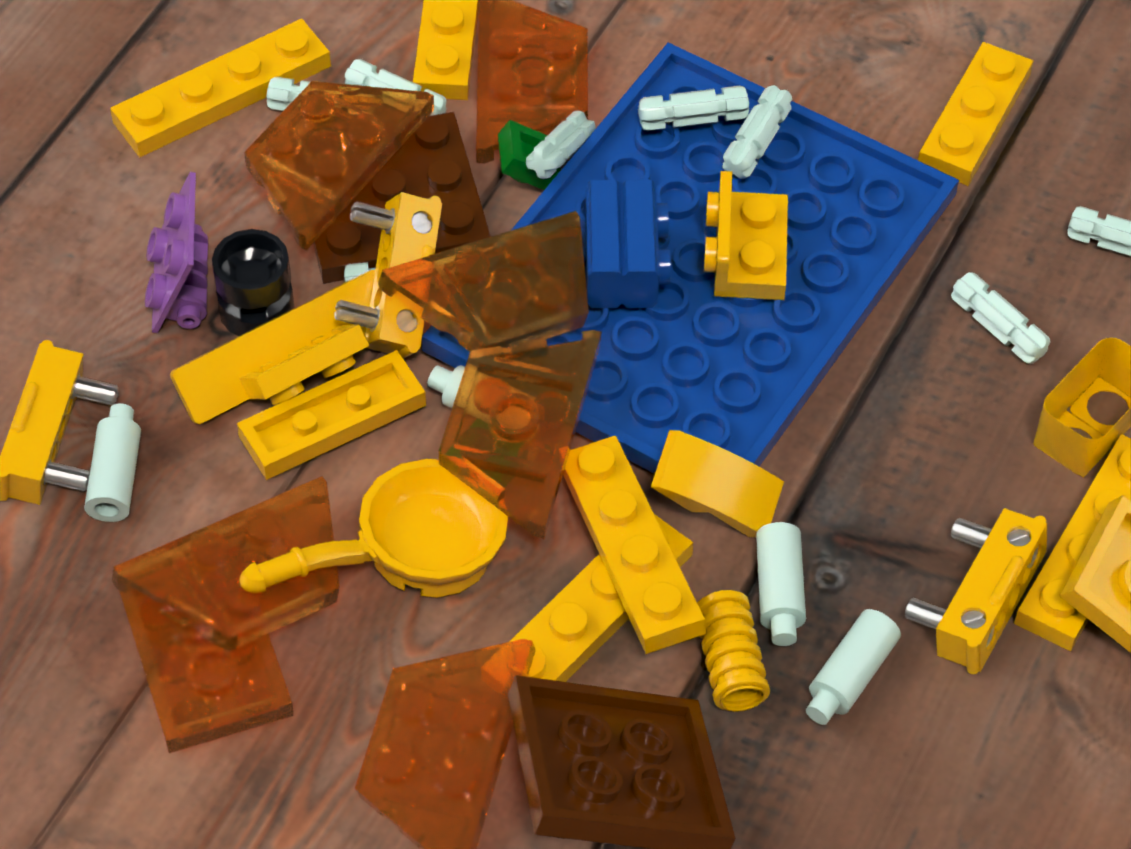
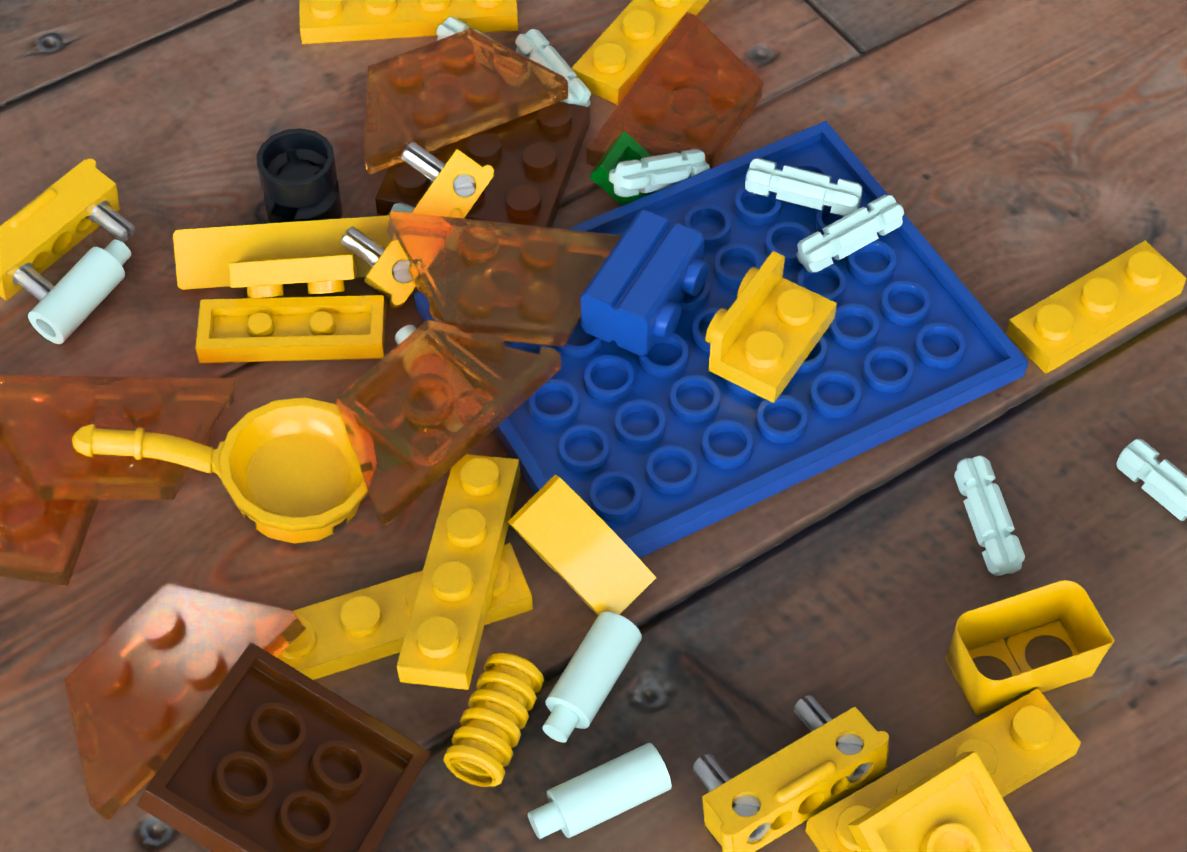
camera: 30 degrees right, 0 degrees up
(180, 263) = (241, 136): medium lavender hinge -> none

